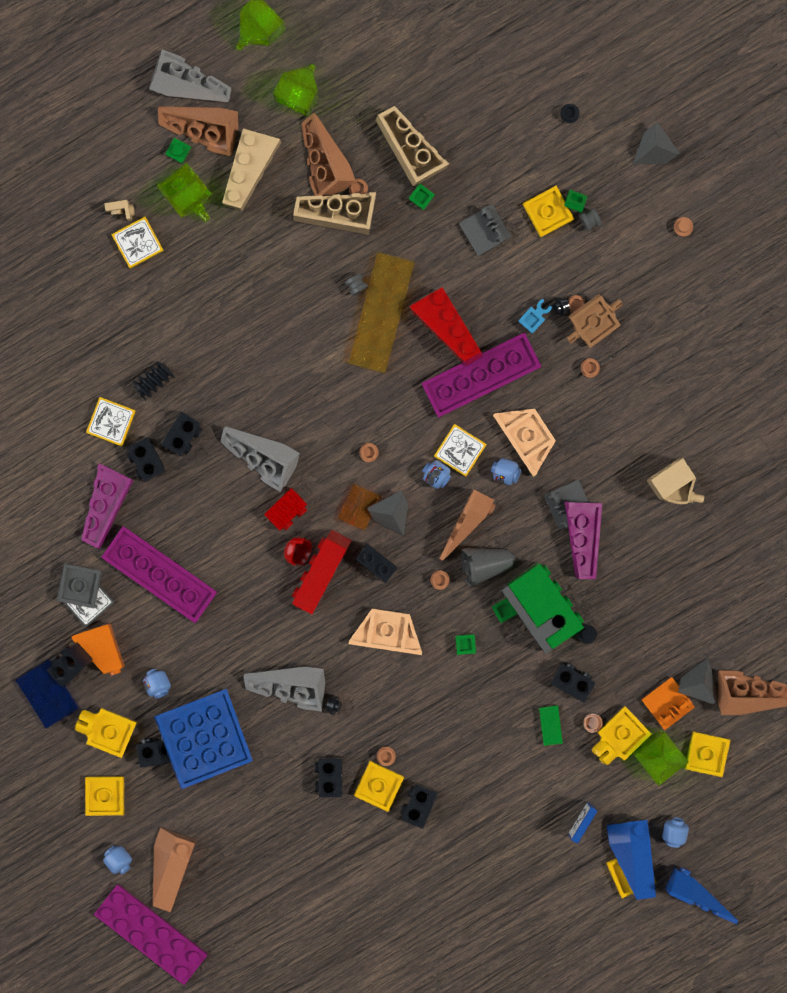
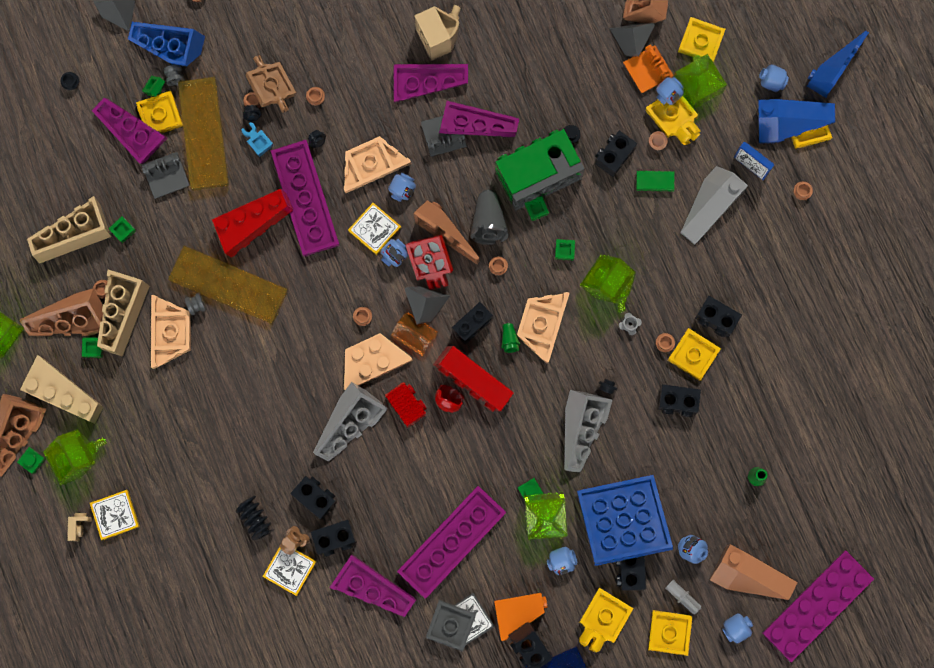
camera: 75 degrees left, 10 degrees down
(137, 421) = (293, 540): none -> medium nougat plate
(139, 804) = (683, 597): none -> light grey axle
(186, 808) = (693, 549): none -> medium blue head
(196, 662) = (545, 515): none -> clear neon green piece
(220, 643) = (530, 488): none -> green plate
(270, 859) = (753, 476): none -> green cone
(297, 188) = (90, 348): none -> green plate
(325, 263) = (168, 331): none -> light nougat wing
(326, 468) = (372, 359): none -> light nougat wing
(366, 602) = (509, 339): none -> green cone
(401, 724) = (635, 323): none -> light grey plate
(433, 512) = (430, 260): none -> red piece
(438, 693) = (610, 280): none -> clear neon green piece
(523, 188) = (133, 133): none -> magenta wing
(533, 260) = (203, 133): none -> clear yellow plate
(541, 787) = (714, 198): none -> light grey wedge
(544, 377) = (316, 139): none -> black plate
(561, 875) = (803, 190): none -> nougat plate
(621, 213) = (169, 43): none -> blue wedge
(623, 475) = (424, 79): none -> magenta wing
(643, 728) = (669, 91): none -> medium blue head

